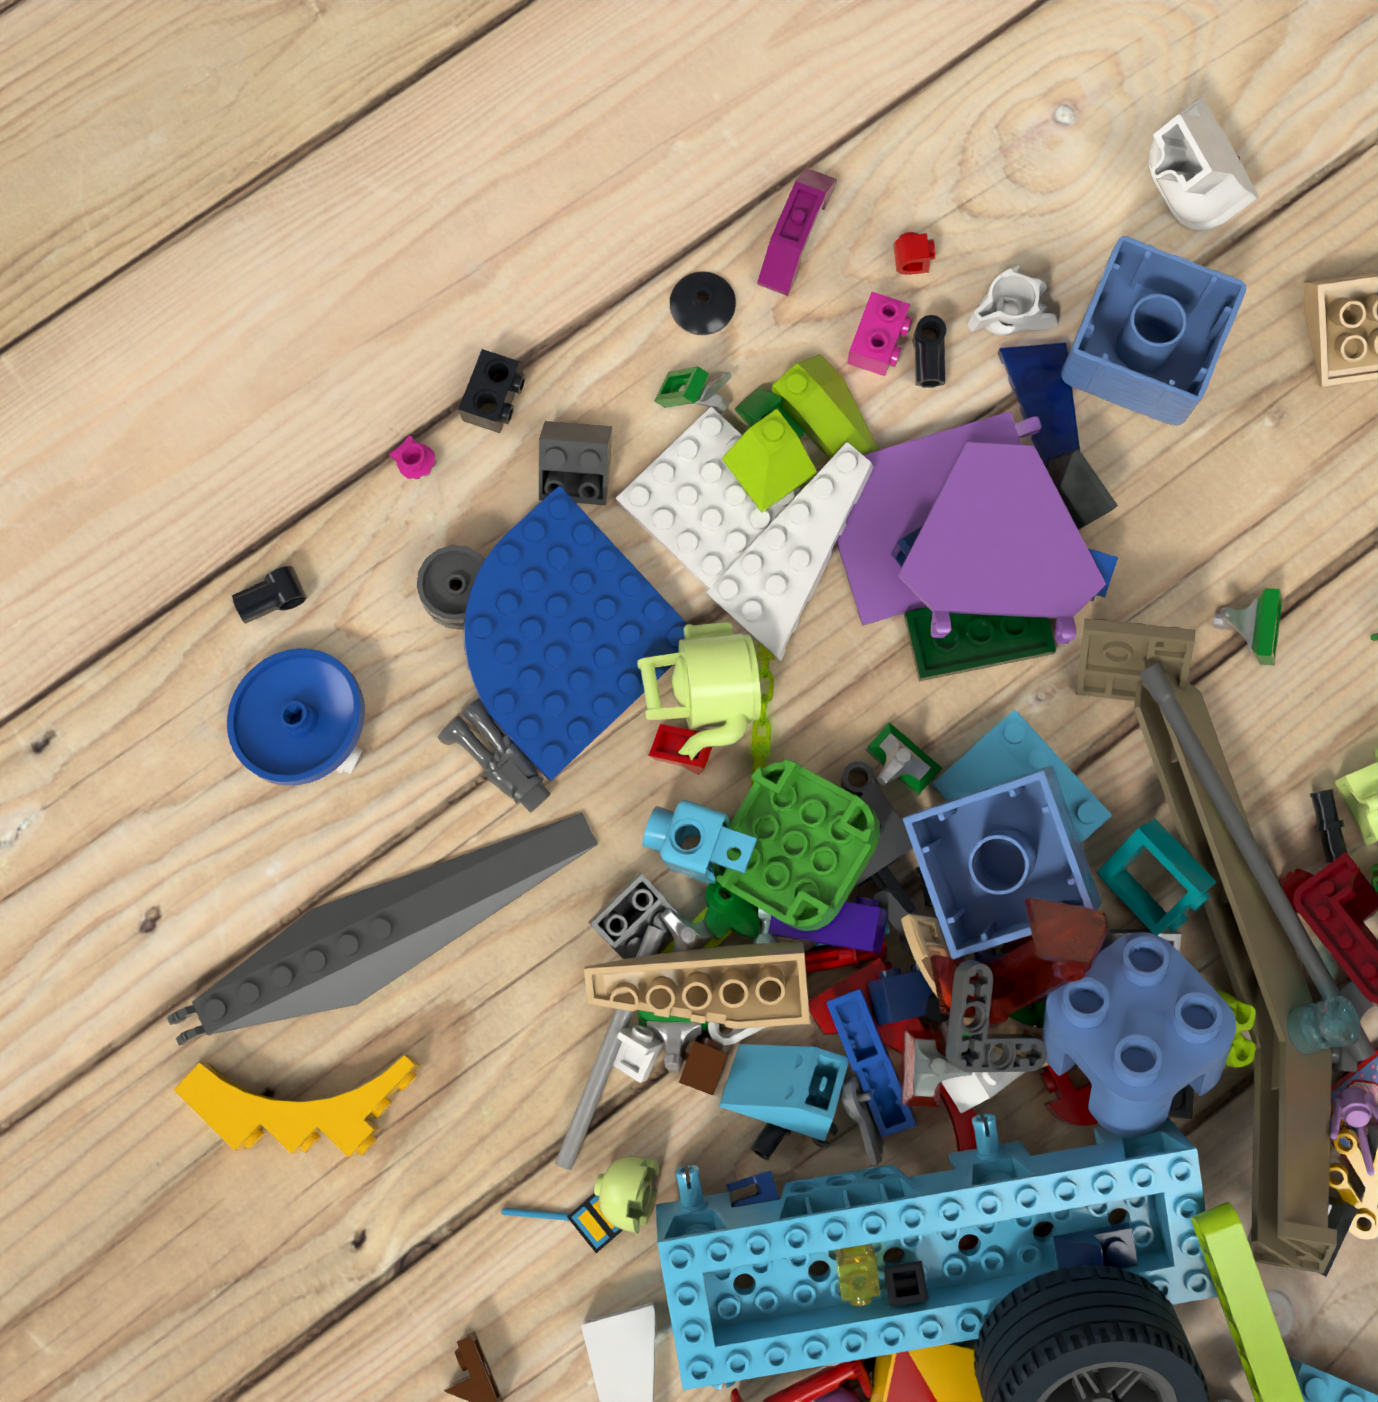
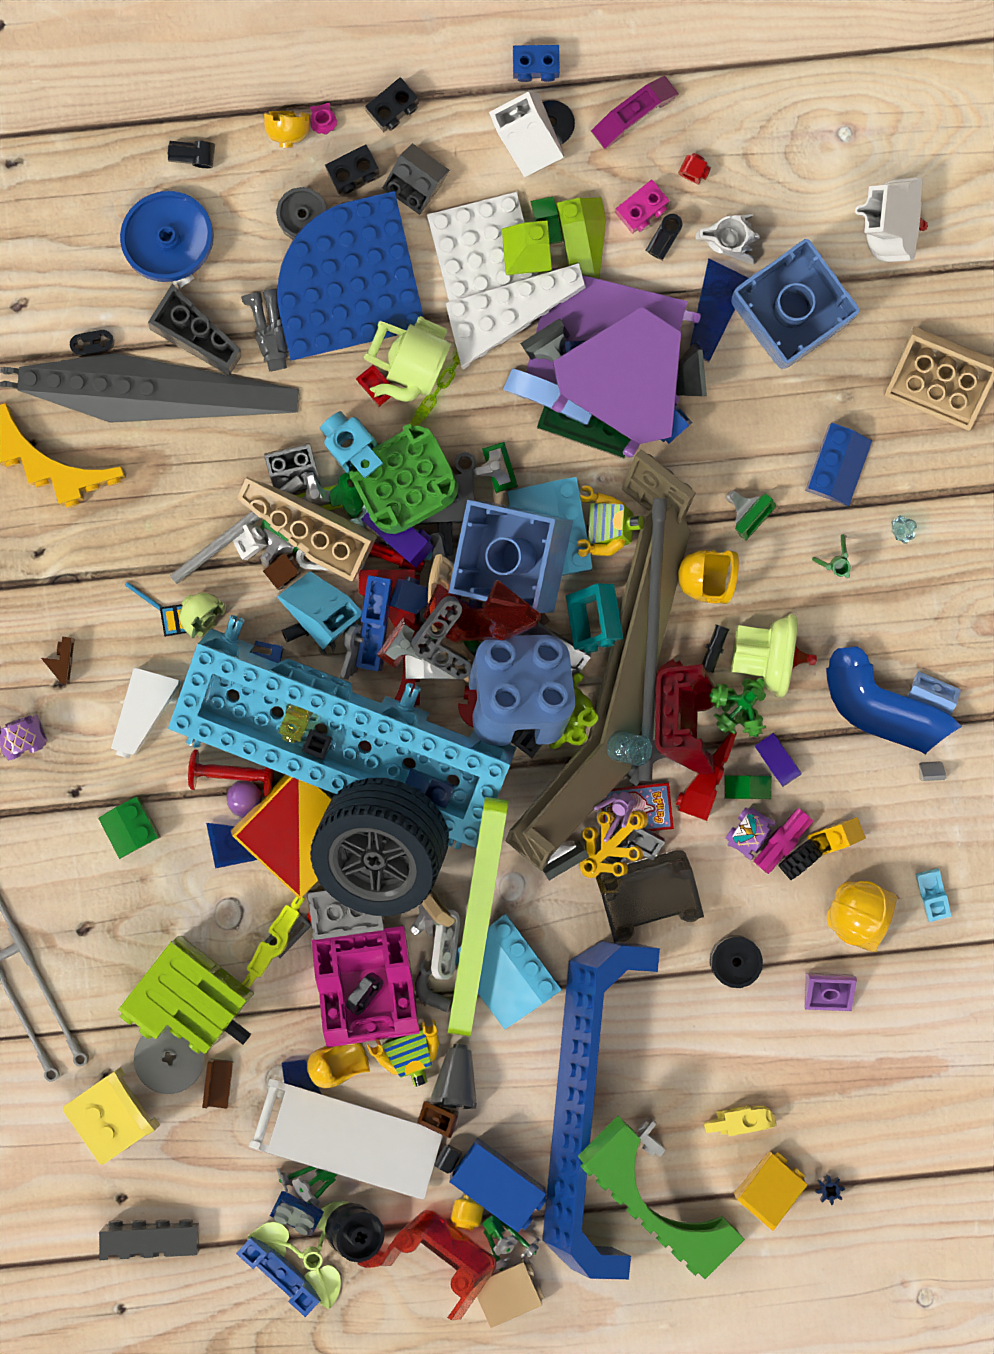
camera: 25 degrees right, 10 degrees up
(267, 907) = (91, 337): none -> black beam
(373, 493) = (286, 127): none -> yellow cylinder
(396, 818) = (191, 330): none -> dark grey wedge
(480, 494) = (349, 163): none -> black brick
(639, 240) = (536, 62): none -> blue brick
(682, 325) = (527, 133): none -> white slope
(691, 387) = (508, 175): green piece -> none
(869, 564) = (547, 342): none -> pearl dark grey piece
(902, 629) = (543, 393): none -> light blue slope
(1096, 746) = (609, 525): none -> torso
(1256, 740) = (704, 575): none -> yellow piece
(1324, 501) = (838, 464): none -> blue slope

